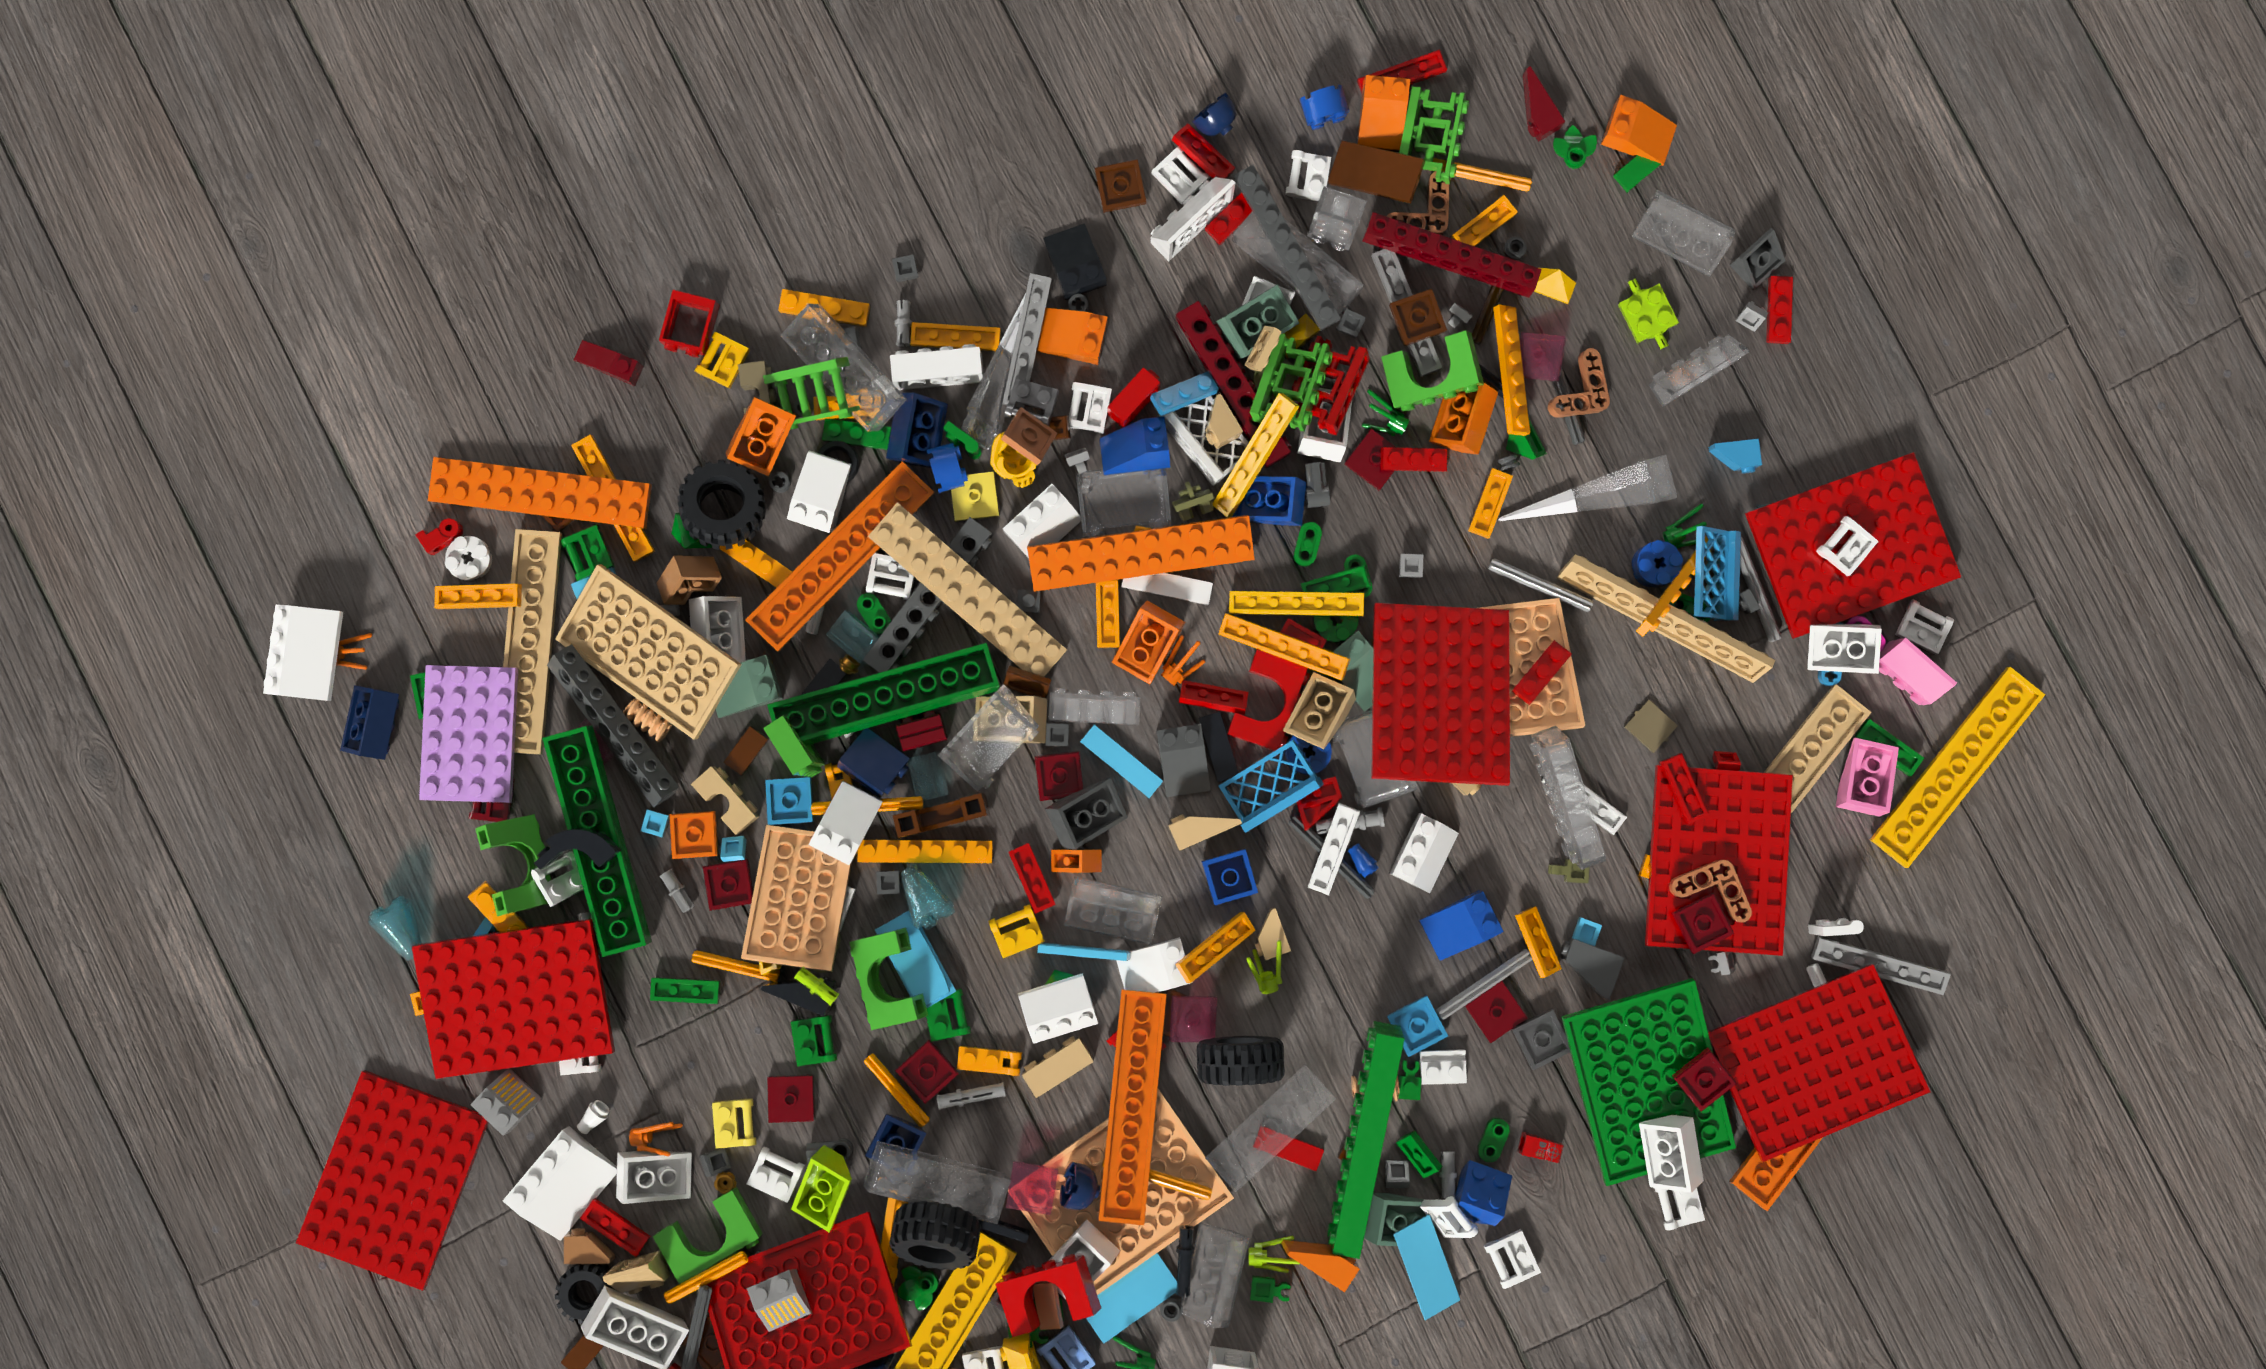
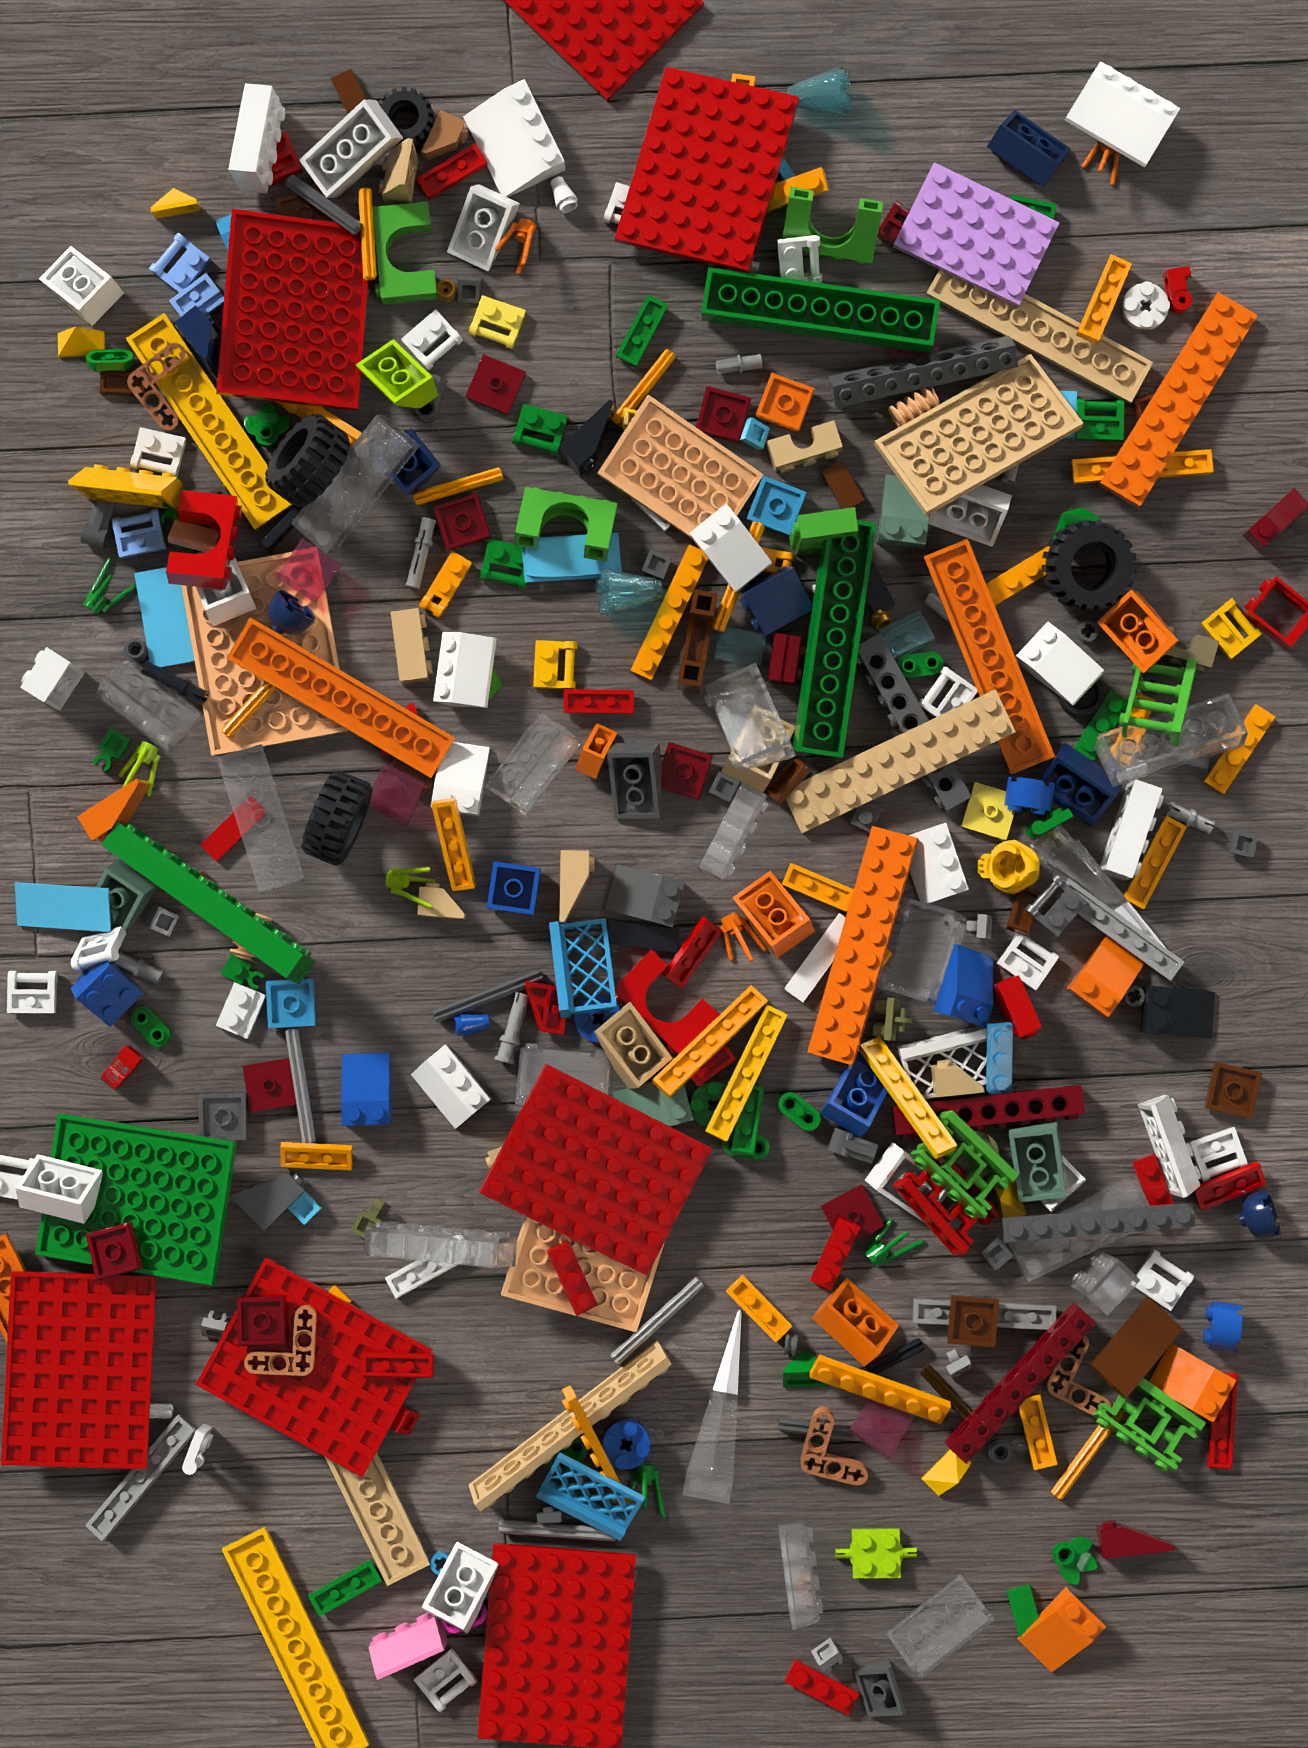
camera: 115 degrees right, 0 degrees up
(506, 1101) = (614, 122): light grey slope -> none
(592, 842) = (823, 300): black arch -> none
(655, 823) = (812, 371): medium azure plate -> none
(687, 575) = (1035, 503): medium nougat brick -> none
(779, 1300) = (315, 291): light grey slope -> none
(816, 985) = (589, 452): lime pin -> none
(1029, 436) = (1024, 887): nougat plate -> none
(1081, 951) = (506, 719): medium azure tile -> none
(1121, 761) = (671, 837): medium azure tile -> none
(1262, 349) = (1005, 1148): tan plate -> none
(1333, 848) = (494, 1000): white tile -> none
(1411, 565) = (733, 1201): light grey tile -> none
(1419, 1154) = (170, 949): green plate -> none
(1463, 375) = (895, 1336): bright green arch -> none
(1651, 726) = (472, 1364): dark tan piece -> none
(1738, 455) = (696, 1576): dark azure slope -> none
(1853, 550) = (551, 1641): white plate -> none
(1868, 778) = (325, 1551): bright pink slope -> none

